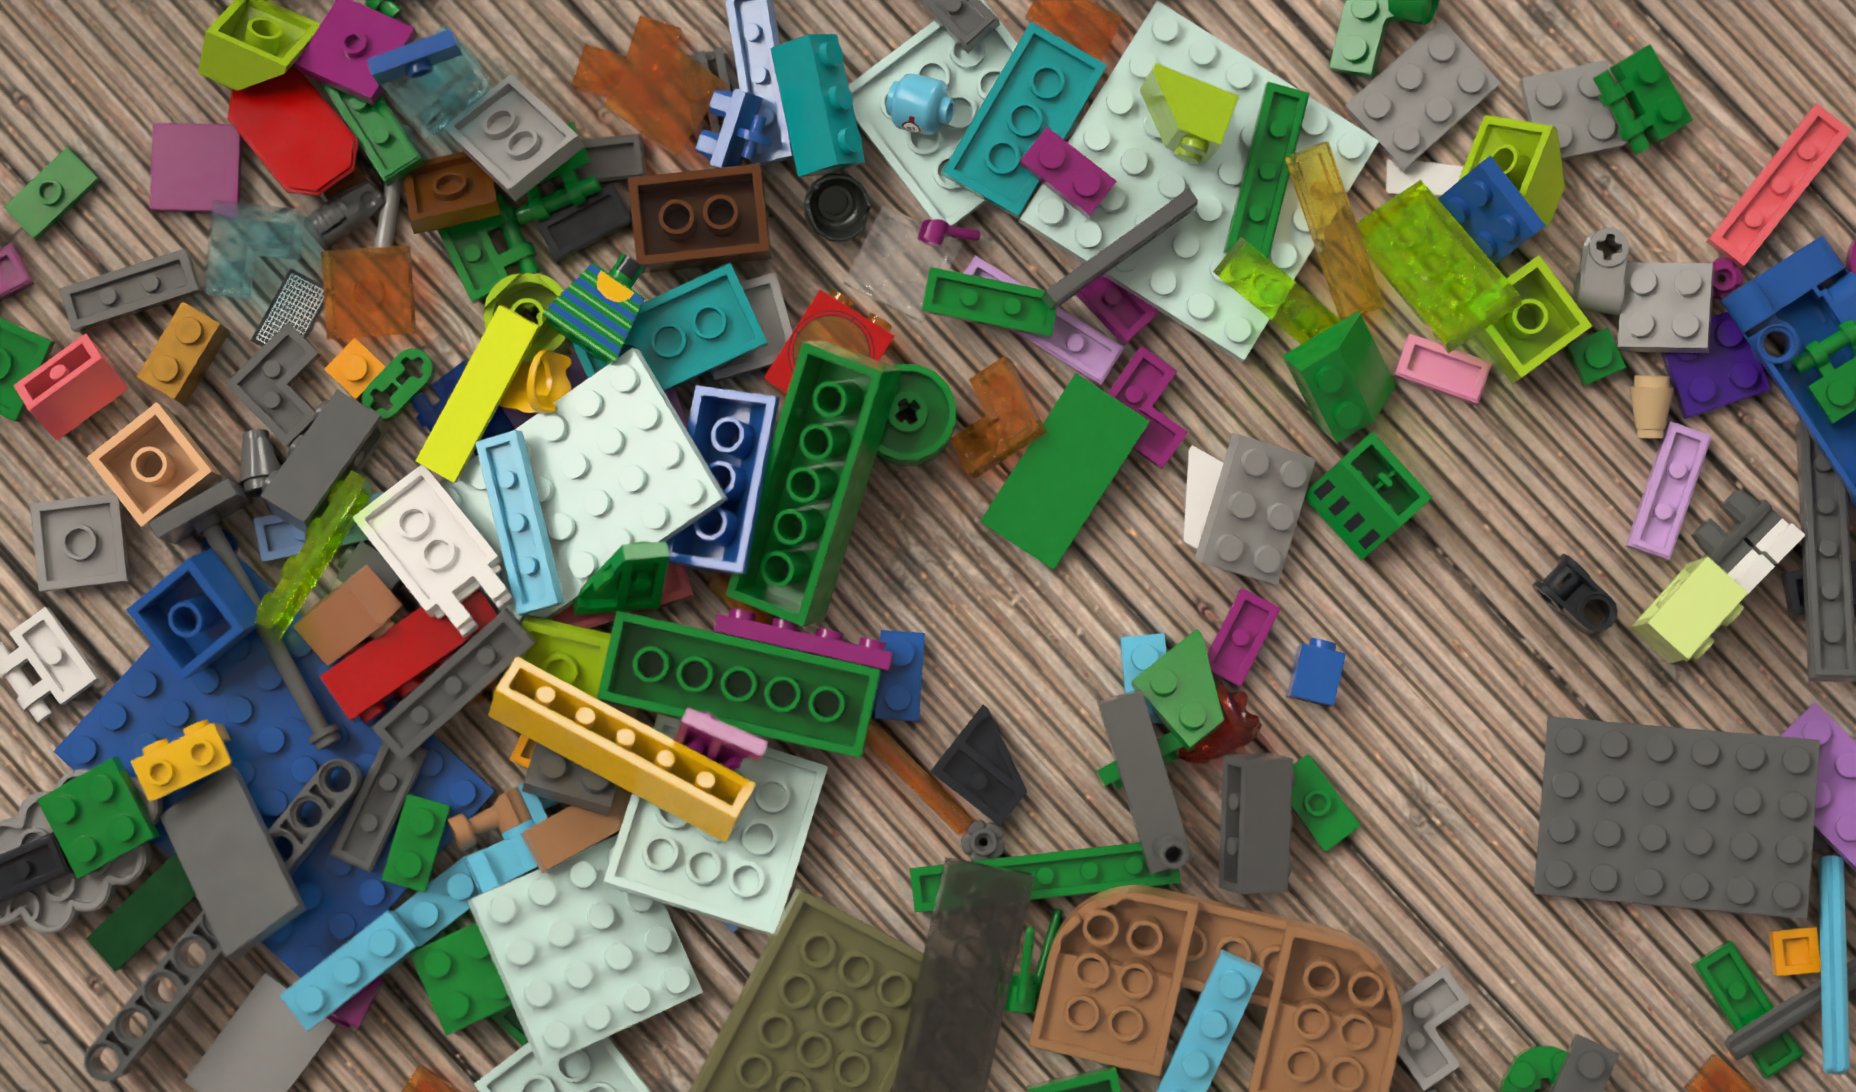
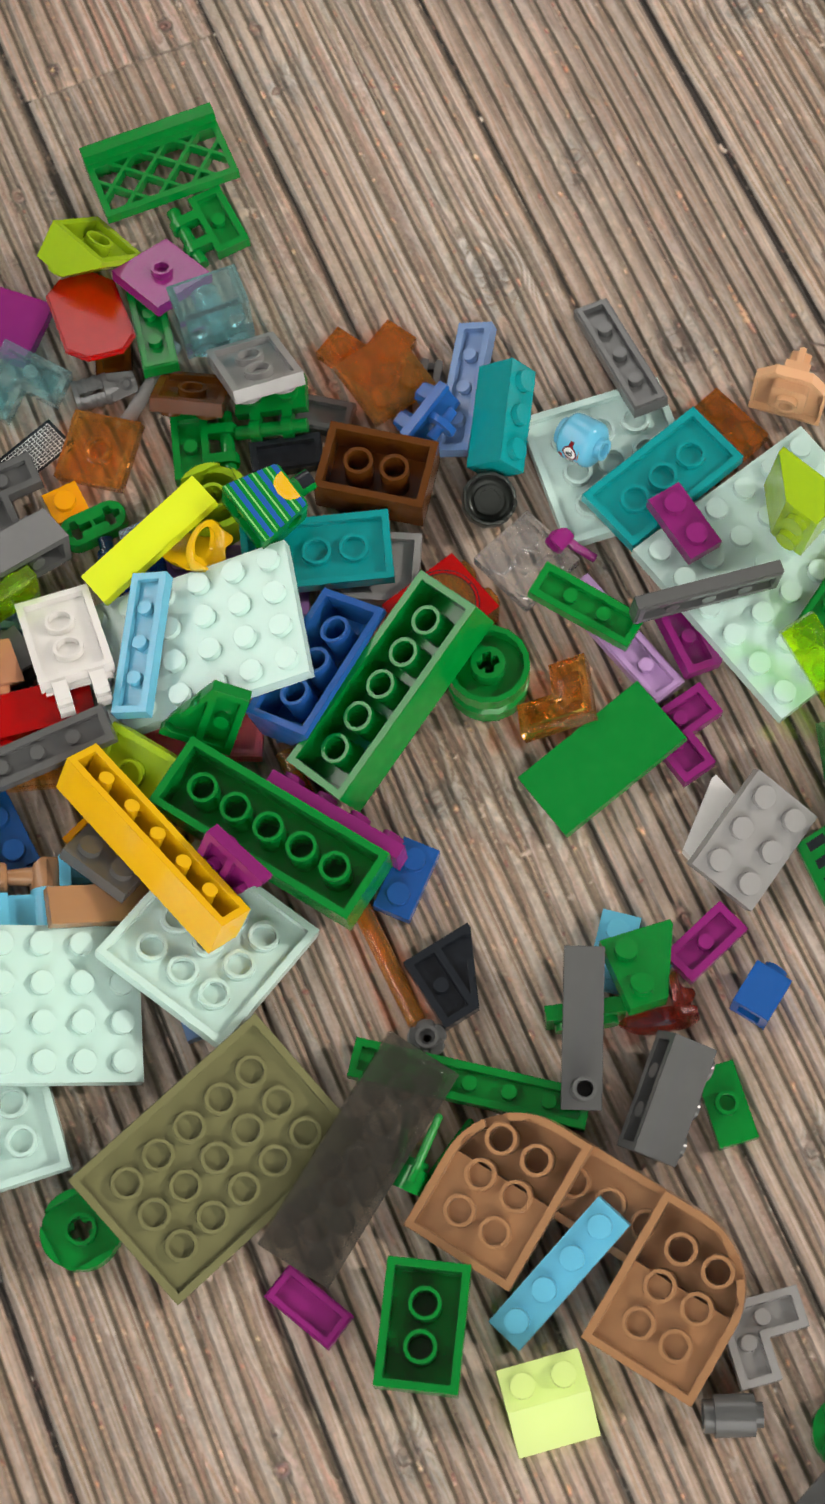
camera: 25 degrees right, 15 degrees down
(414, 58) = (199, 274): blue plate -> none

